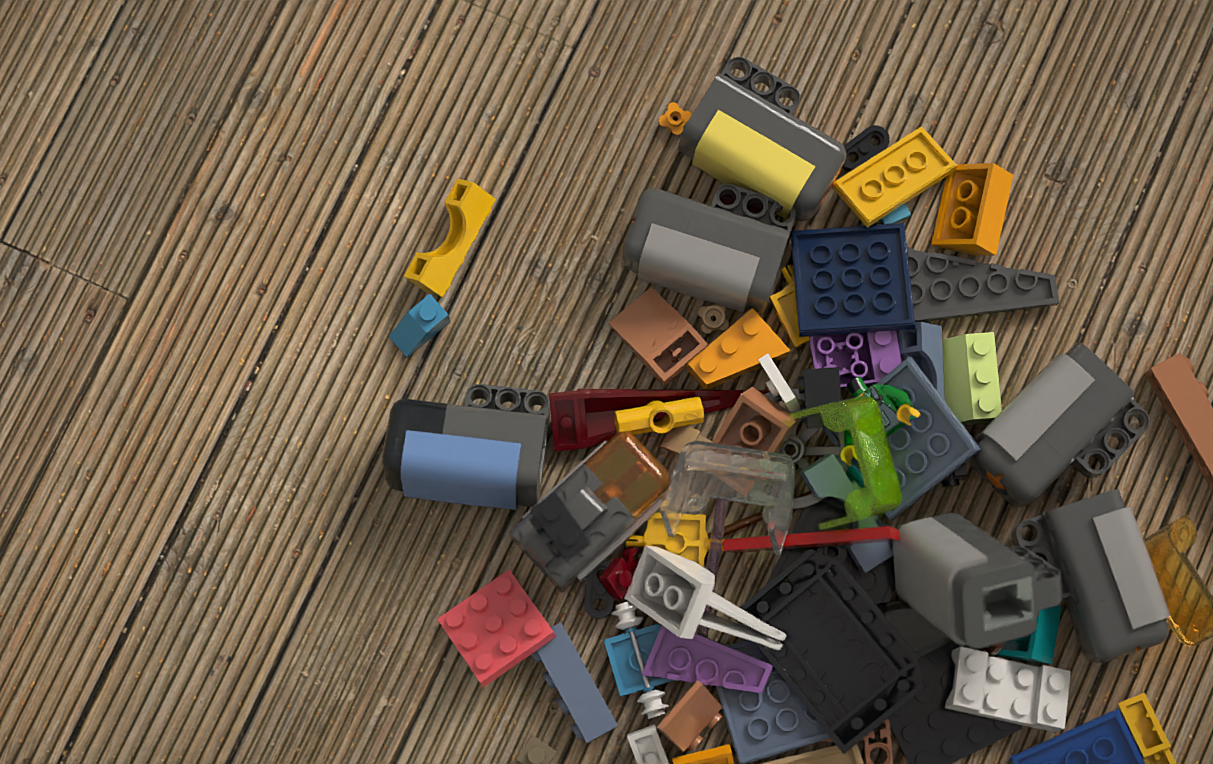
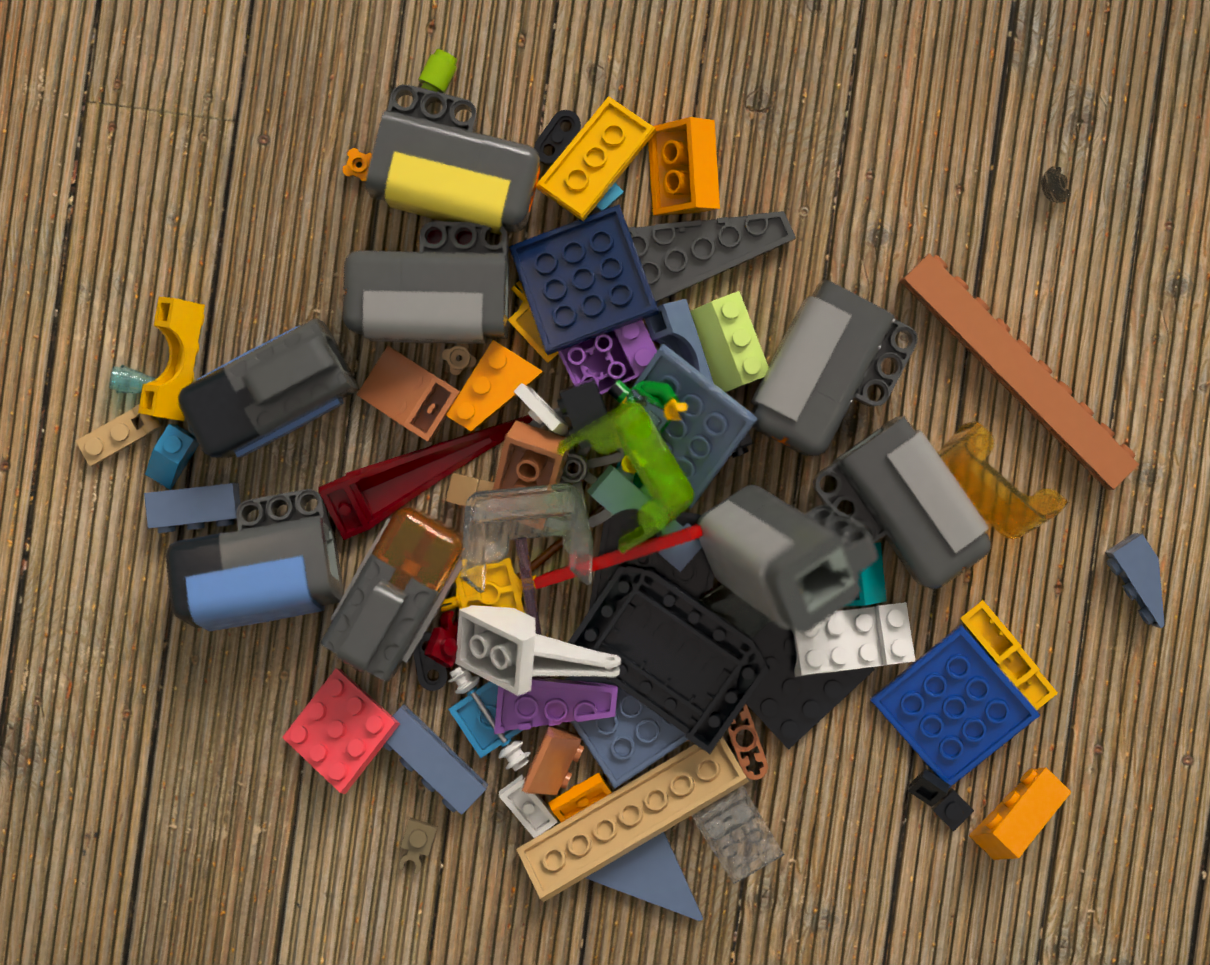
camera: 20 degrees left, 10 degrees up
(375, 293) = (116, 436): none -> tan plate
(402, 246) = (128, 380): none -> clear light blue cone
(424, 378) = (192, 507): none -> sand blue brick
(531, 292) = (267, 391): none -> piece
(561, 528) = (363, 636): black brick -> none
(677, 414) = (417, 484): yellow piece -> none
(774, 56) = (438, 71): none -> lime brick

